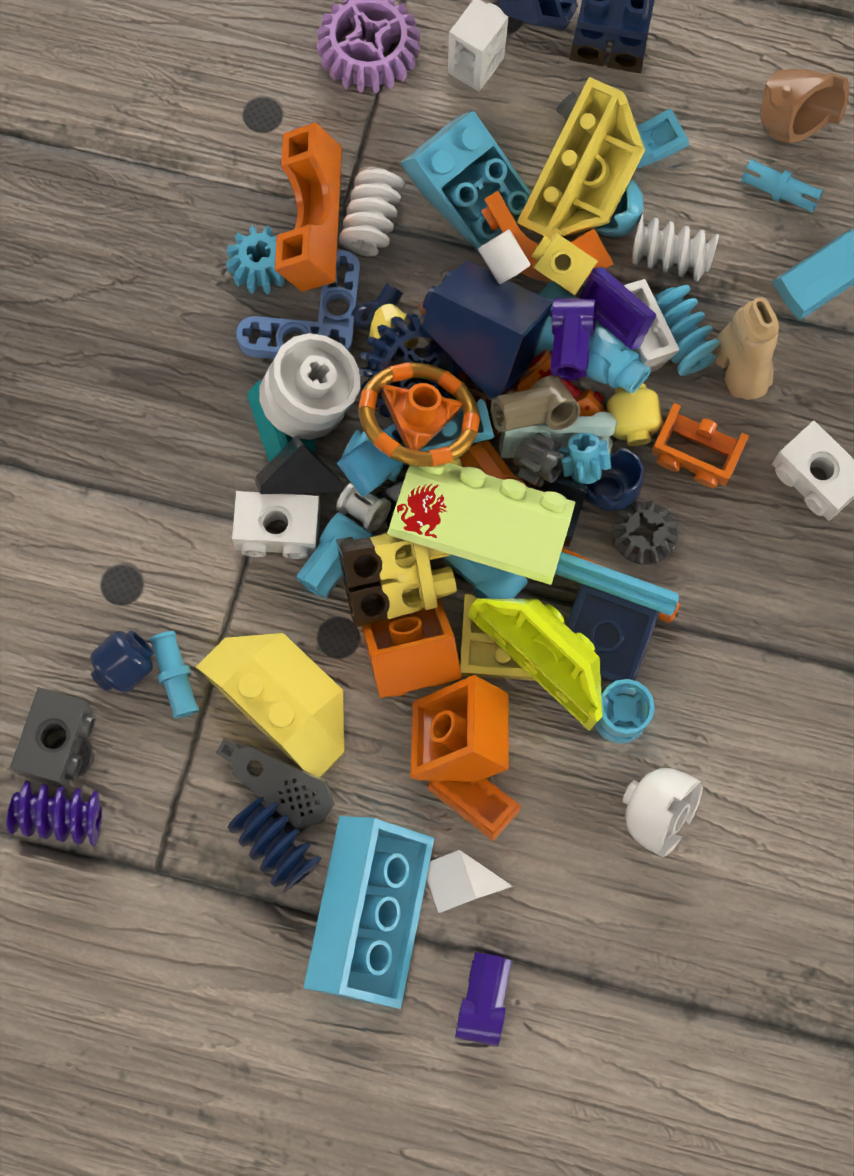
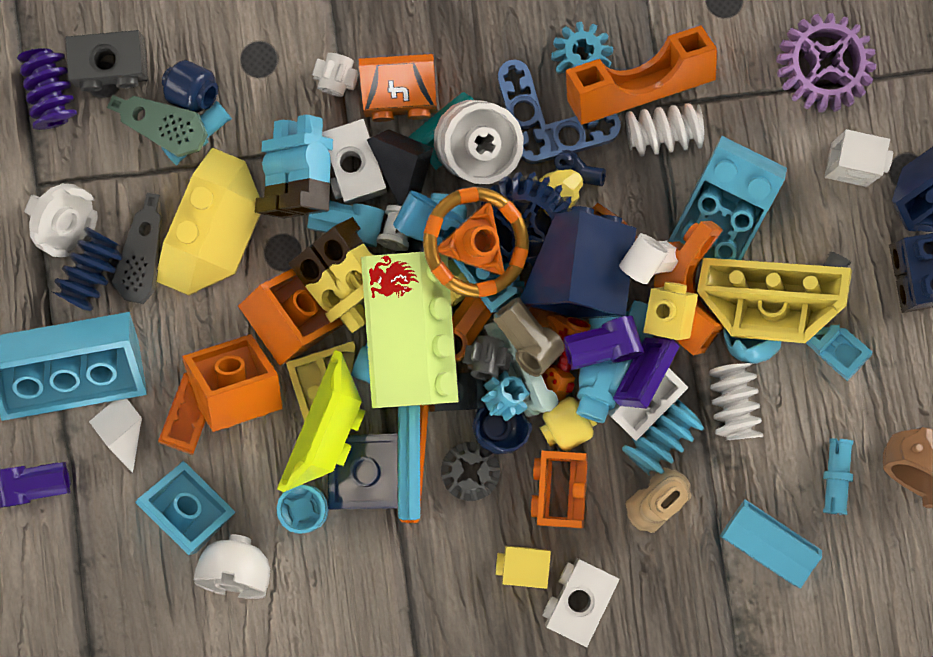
camera: 70 degrees right, 10 degrees up
(143, 711) = (155, 120): none -> sand green piece
(175, 506) = (335, 74): none -> white gear
(206, 851) = (60, 218): none -> white tile
(217, 445) = (398, 87): none -> orange slope
(261, 579) = (296, 169): none -> medium azure hips
(576, 837) = (185, 508): none -> medium azure slope
(765, 512) = (524, 566): none -> light yellow brick

